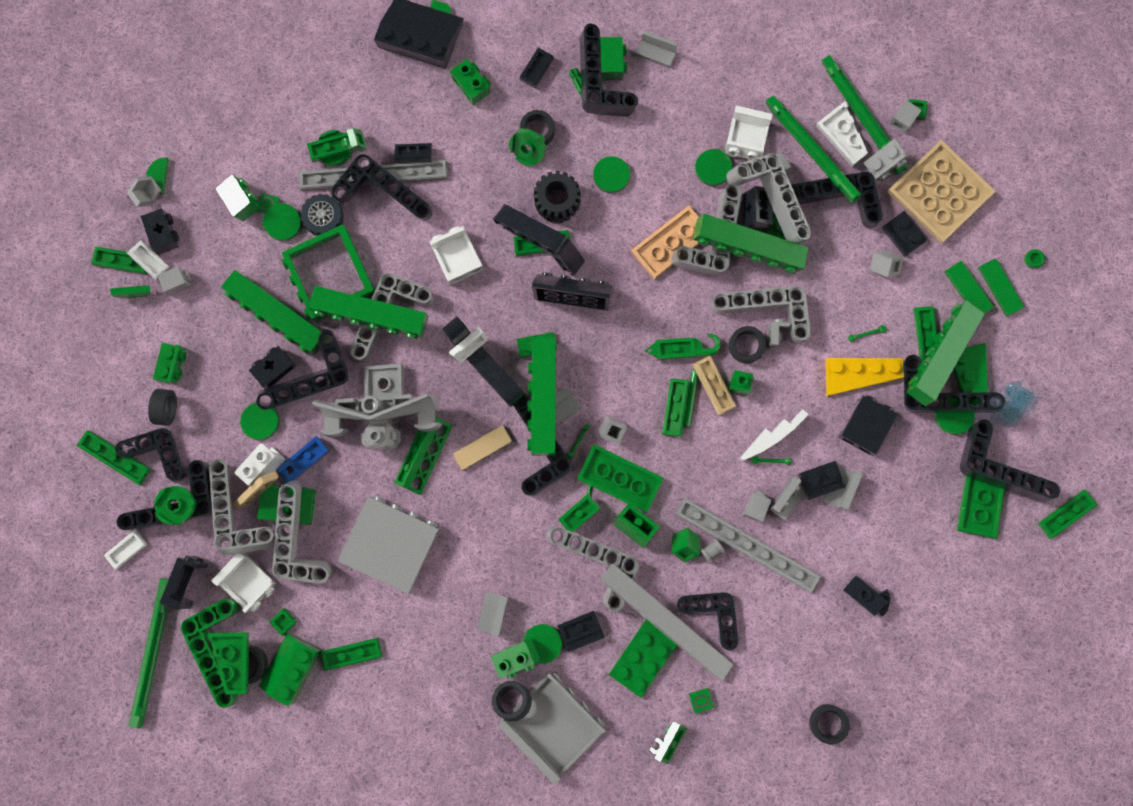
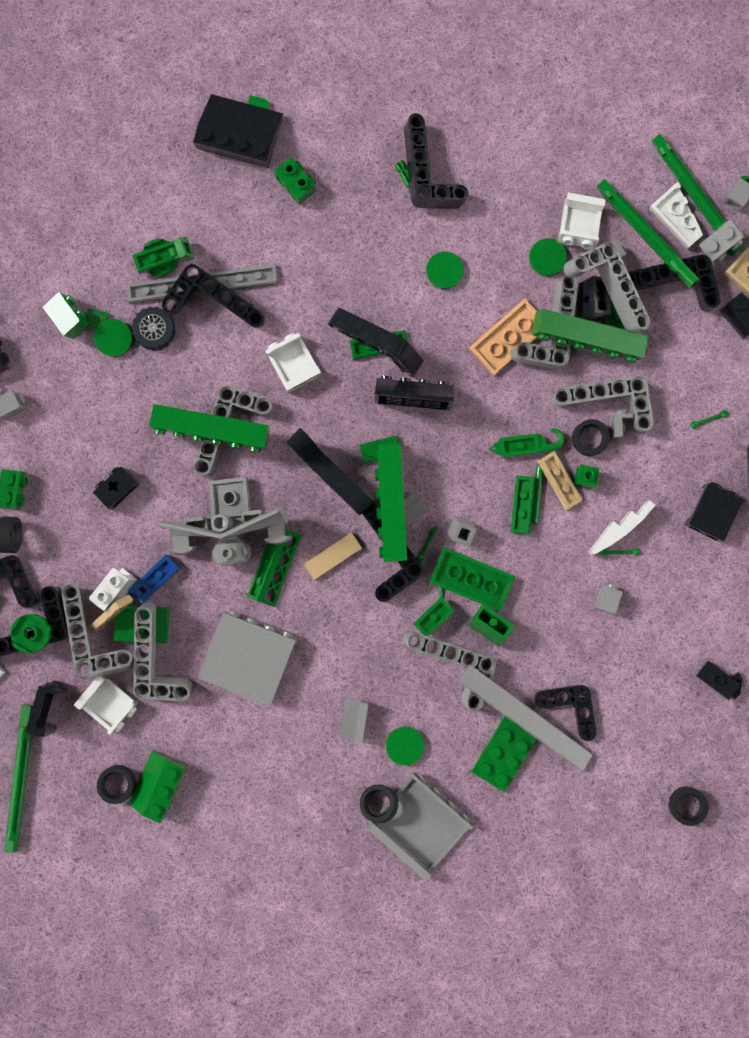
camera: 10 degrees left, 5 degrees up
(202, 655) = (78, 773): green beam -> none
(233, 660) = (101, 779): green wing -> none
(259, 423) = (107, 542): green tile -> none
(273, 311) = (113, 431): green brick -> none
(283, 622) = (147, 740): green tile -> none
(295, 279) = (132, 396): green window -> none
(310, 379) = (154, 498): black beam -> none
(351, 654) = (217, 767): green tile -> none
(413, 153) = (241, 258): black plate -> none
(468, 345) = (313, 456): white tile -> none
(515, 658) = (380, 762): green brick -> none
(533, 140) = (365, 240): green plate -> none
(536, 67) = (361, 162): black plate -> none
(541, 115) = (366, 241): black tyre -> none
(553, 182) = (387, 312): black tyre -> none
(581, 631) = (442, 731): black plate -> none
(612, 58) = (439, 148): green brick -> none
(657, 49) = (483, 136): light grey panel -> none
(671, 741) = (533, 837): plate -> none
(686, 545) = (540, 641): green panel -> none
(701, 700) = (562, 790): green tile -> none
(712, 550) = (566, 645): light grey bush -> none
(748, 545) = (600, 637): light grey tile -> none
(788, 498) = (638, 588): light grey bracket -> none
(821, 480) = (671, 569): black plate -> none
(843, 497) = (691, 576): light grey panel -> none
(857, 373) = (699, 460): yellow wing -> none
(886, 263) = (726, 347): light grey panel -> none

